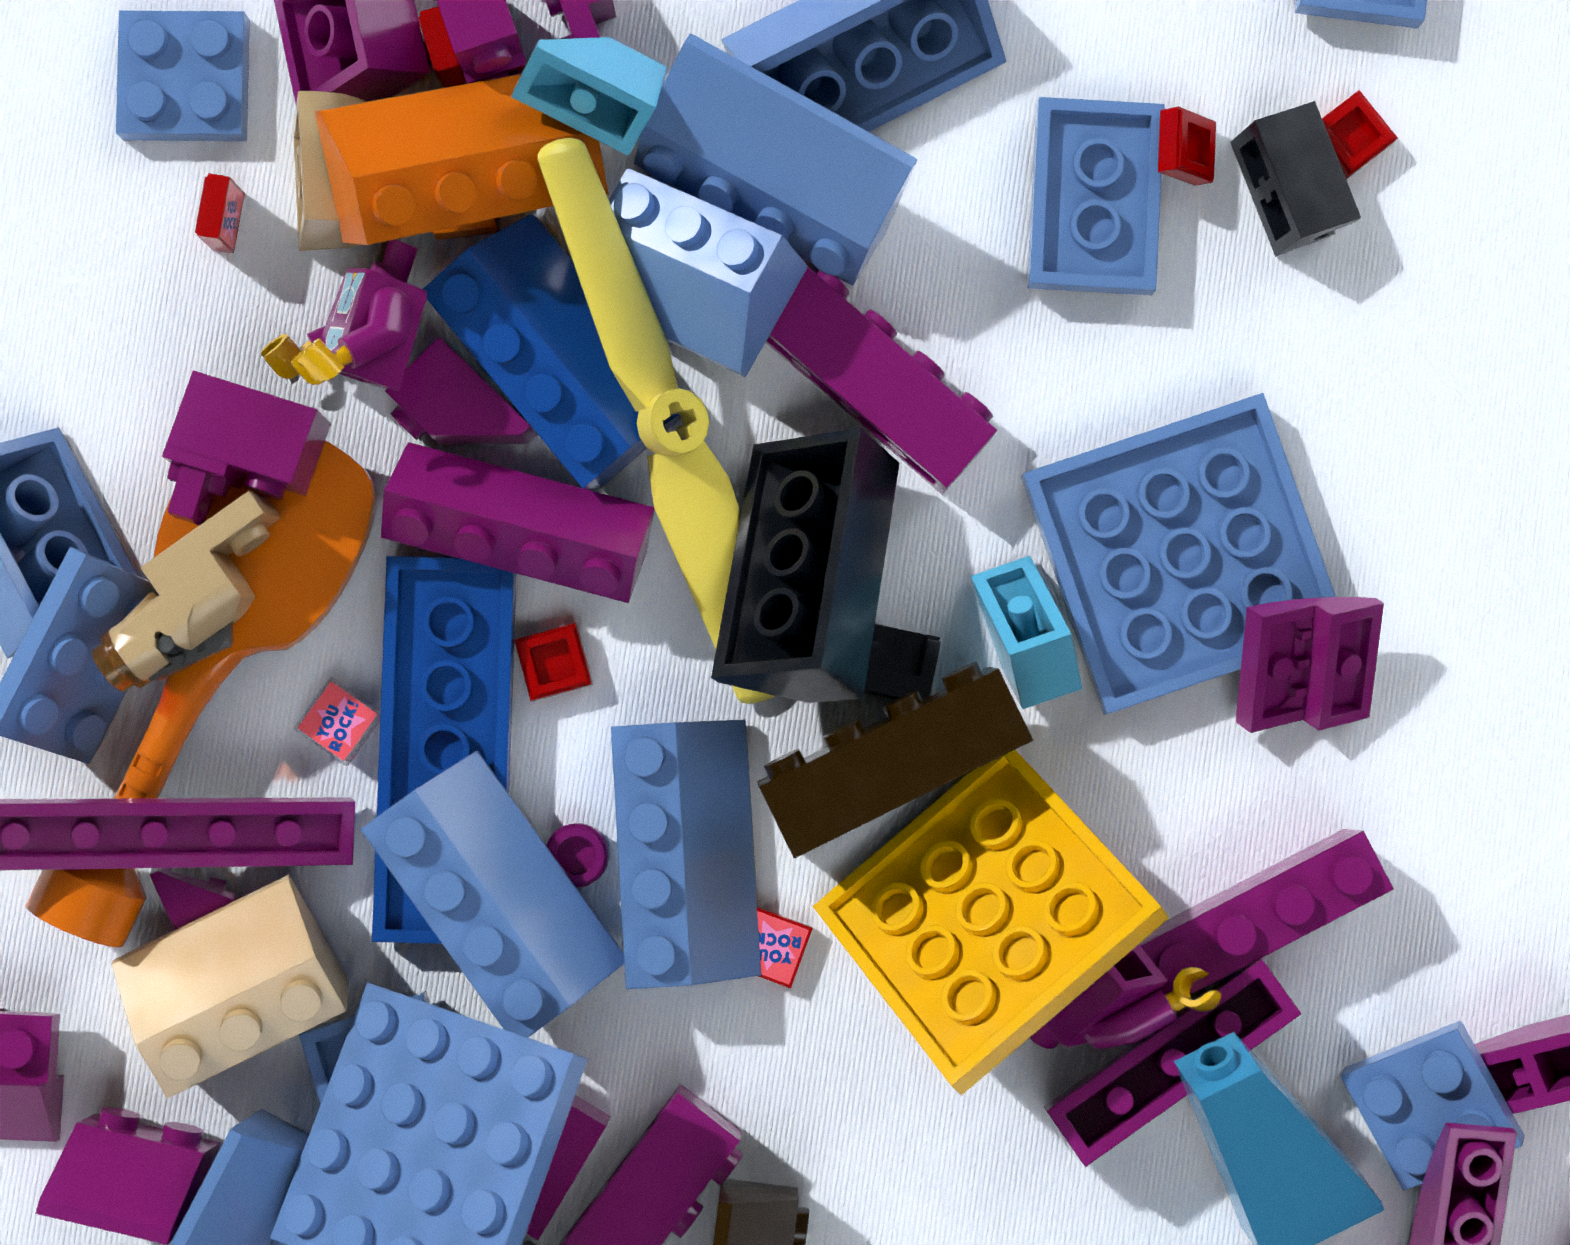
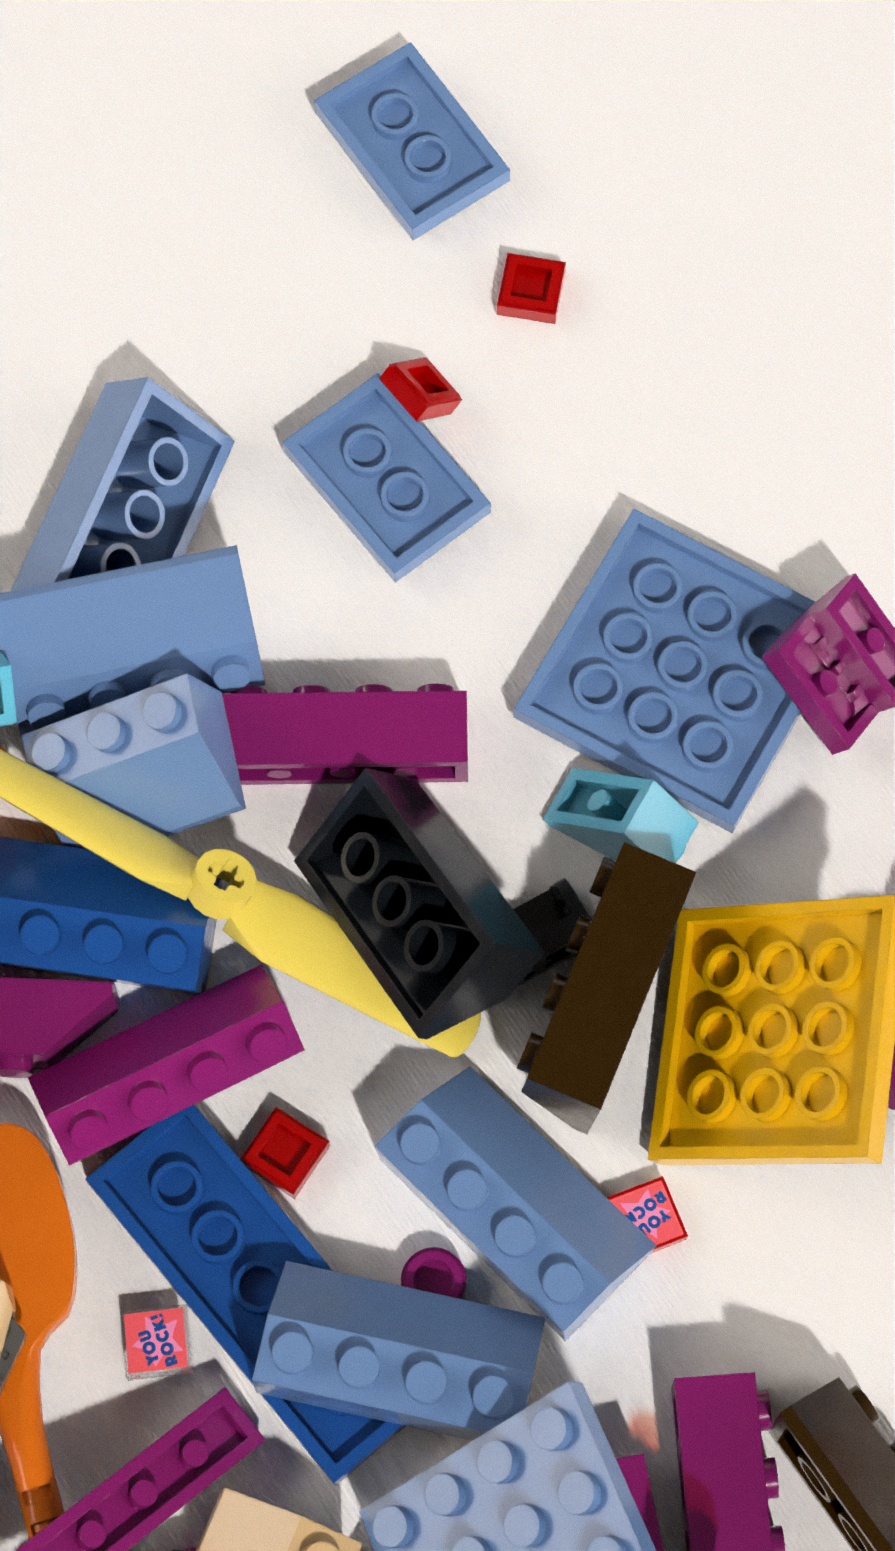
camera: 35 degrees left, 15 degrees down
(1294, 178) = (518, 348): black hinge -> none

